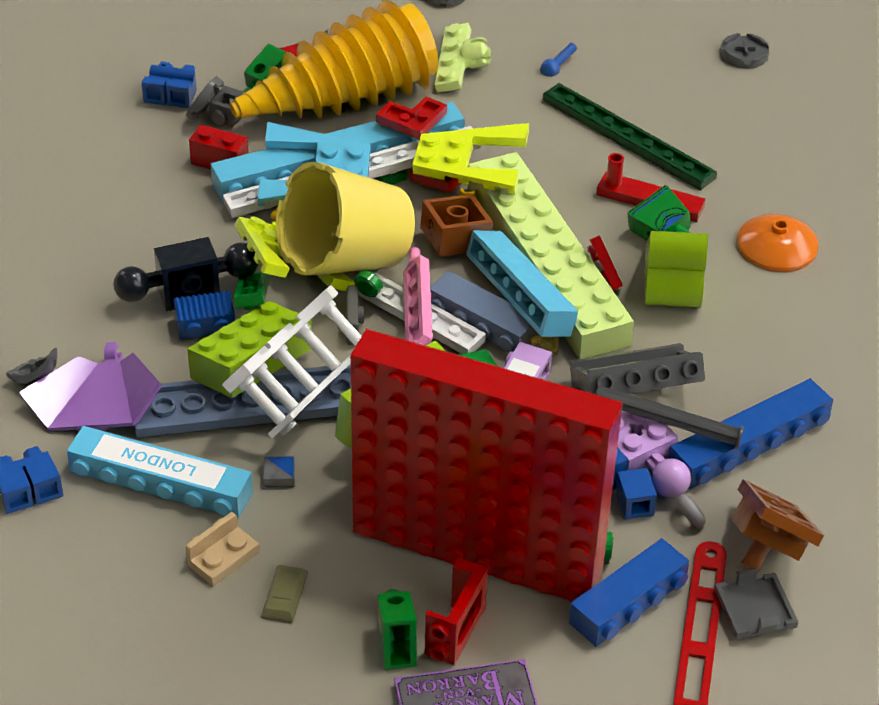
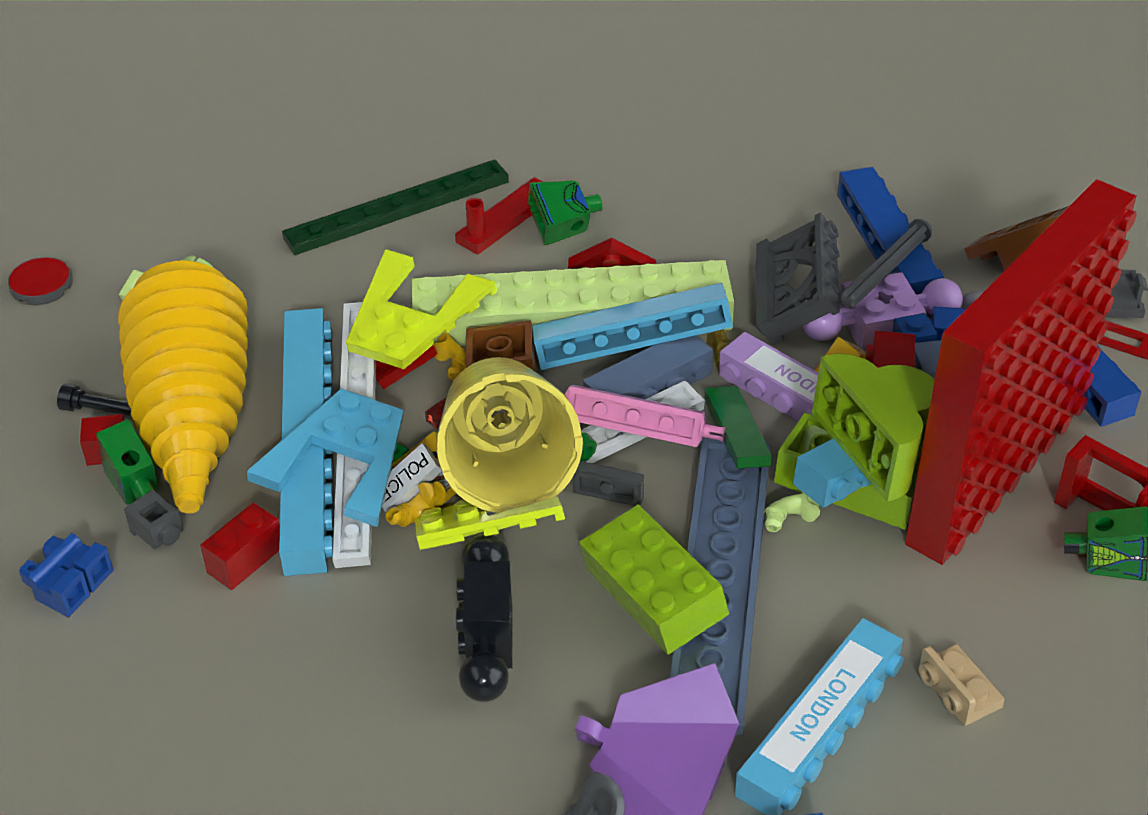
camera: 70 degrees left, 0 degrees up
(201, 103) = (136, 535): dark grey tile -> none
(203, 314) = (554, 622): blue brick -> none
(251, 291) = (550, 556): green plate -> none
(277, 348) = (736, 540): white fence -> none
(279, 471) = (838, 606): flat silver tile -> none
(284, 593) = (1029, 640): olive tile -> none
(412, 121) = (312, 345): red plate -> none
(552, 66) = (243, 232): blue bar -> none
(675, 268) = (655, 210): lime brick -> none
(745, 51) = (307, 93): dark grey tile -> none
(777, 242) = (614, 153): orange dish -> none

